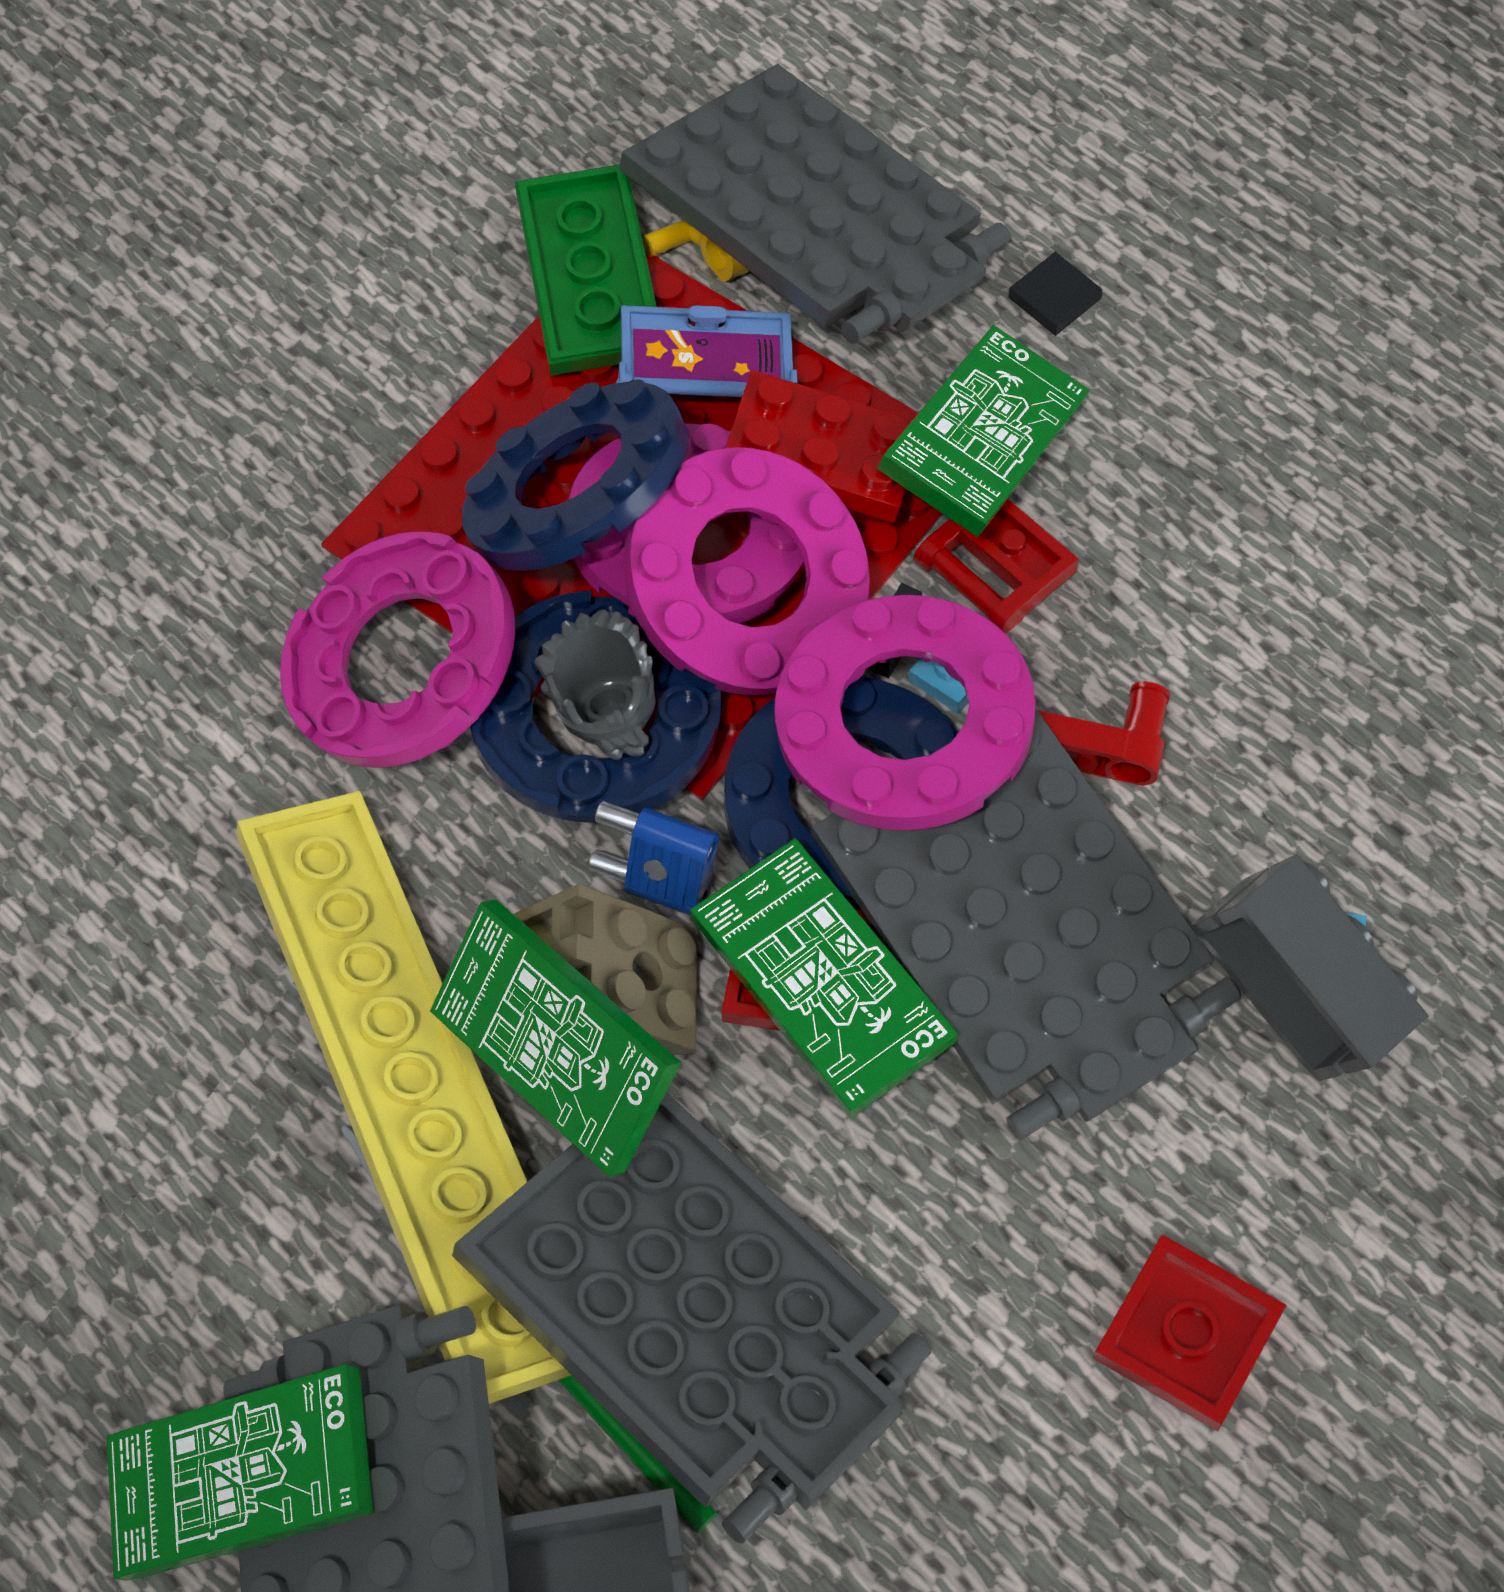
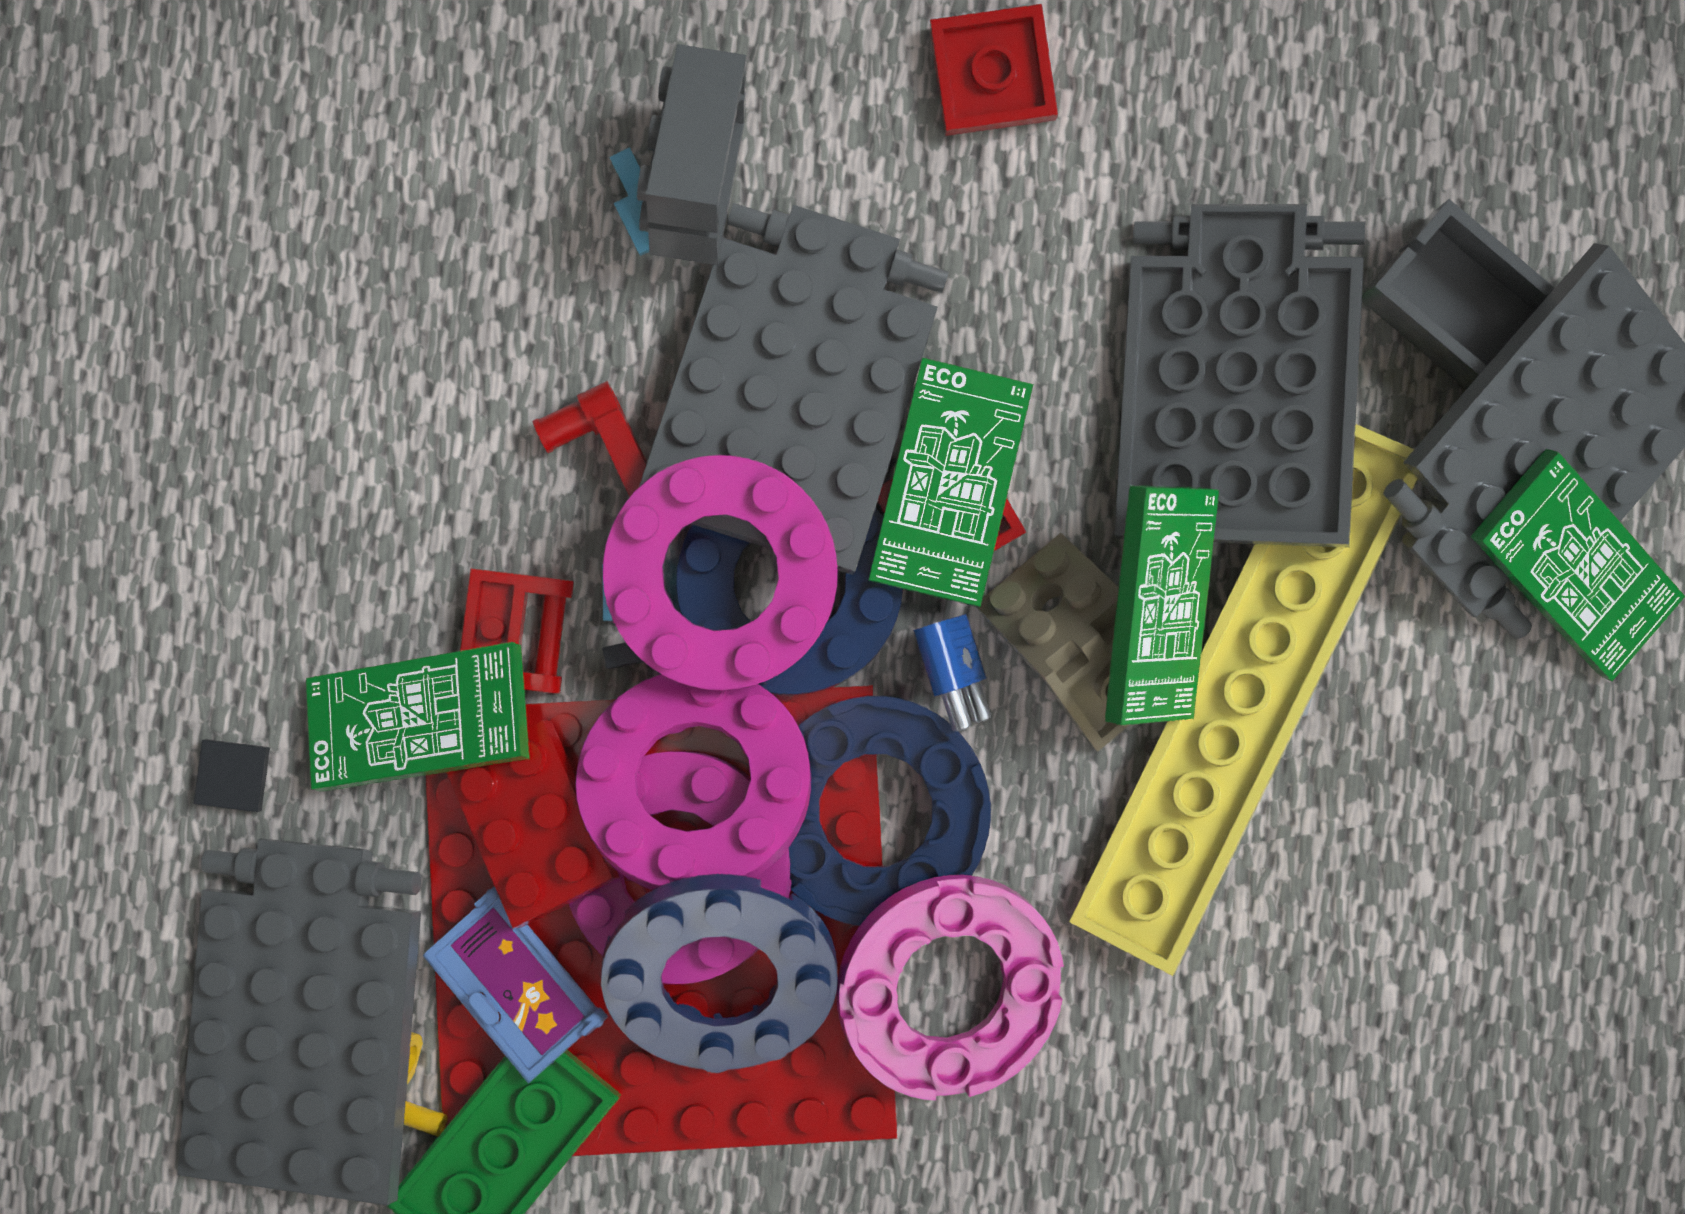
camera: 130 degrees left, 25 degrees up
(600, 682) = (866, 812): dark grey hair -> none

